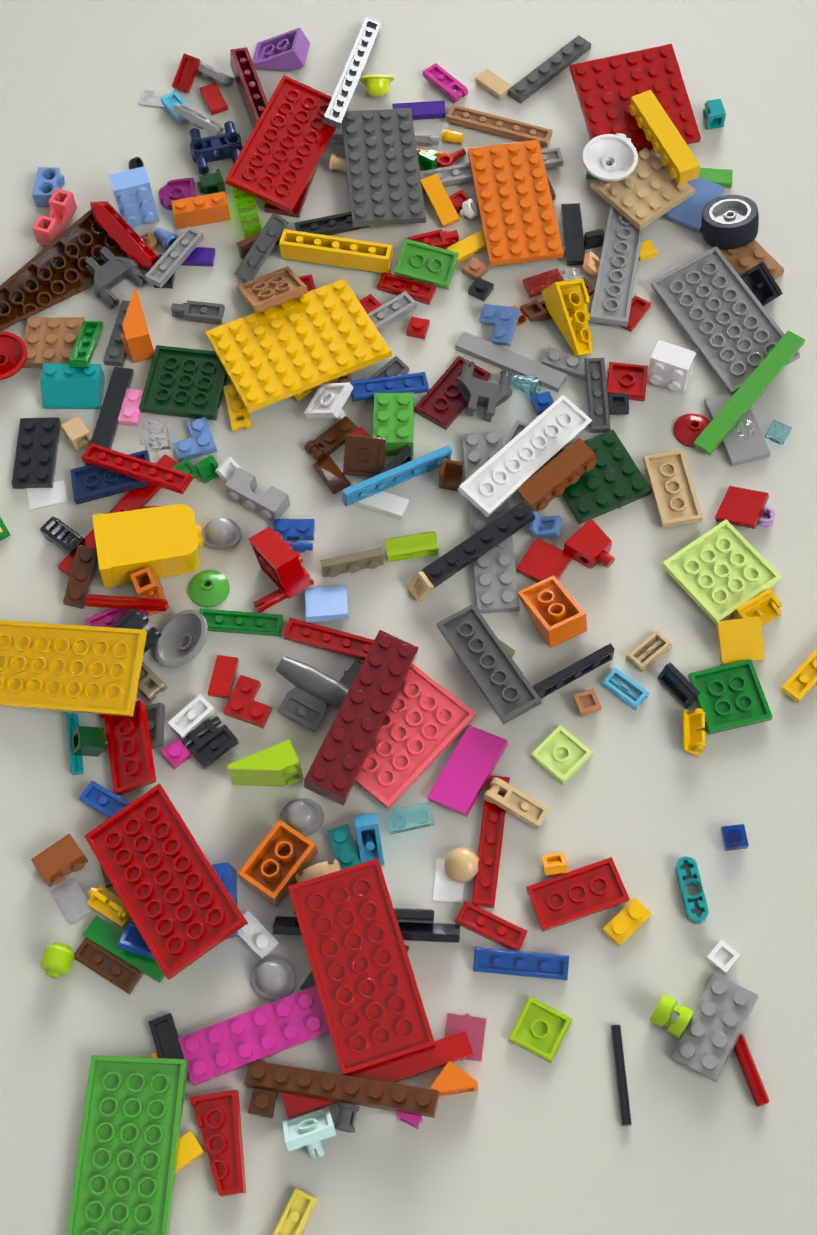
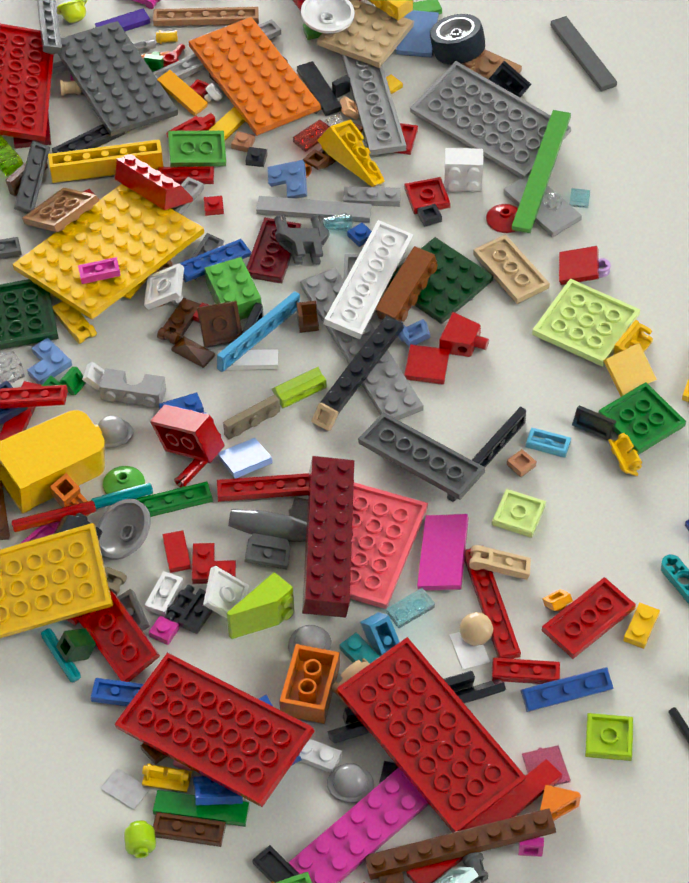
camera: 25 degrees left, 10 degrees down
(59, 860) = (98, 756): dark orange brick -> none
(199, 602) = (130, 493): none -> teal axle
(242, 737) = (223, 591): none -> white plate
(272, 366) = (99, 270): none -> dark pink plate
(363, 289) = (150, 183): none -> red slope
(553, 611) = (456, 398): orange slope -> none
(597, 395) = (407, 212): dark grey tile -> none
(637, 661) = (548, 417): tan tile -> none

